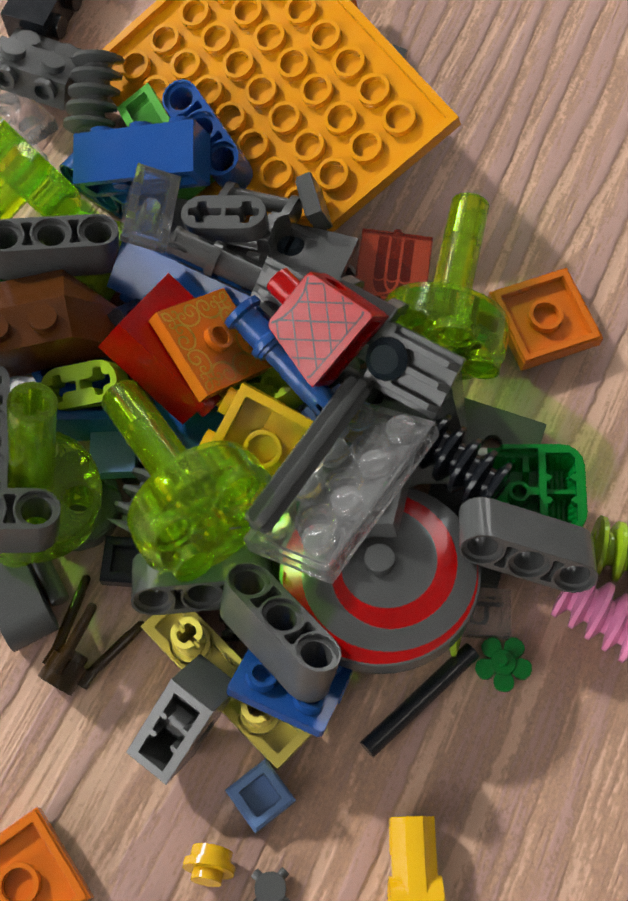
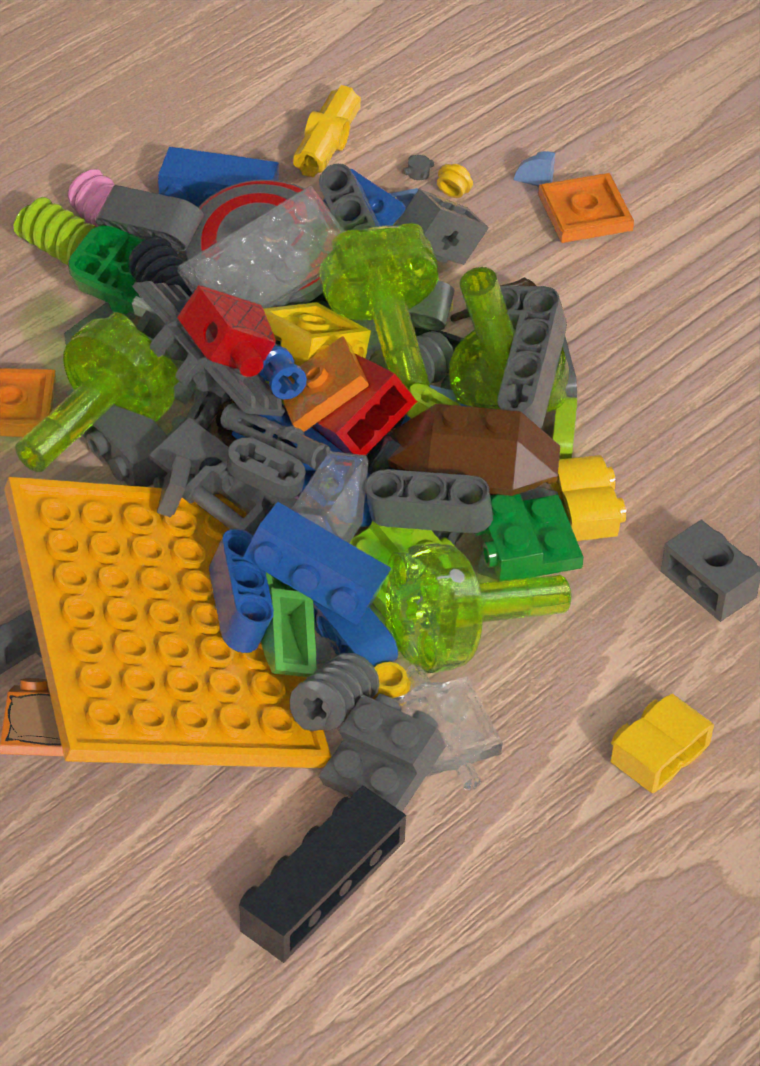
camera: 160 degrees left, 20 degrees down
(58, 145) = (392, 680): none -> yellow plate
(306, 455) = (291, 266): dark grey axle -> none
(392, 260) = (124, 446): clear red piece -> none
(504, 725) = (200, 174): none -> blue brick

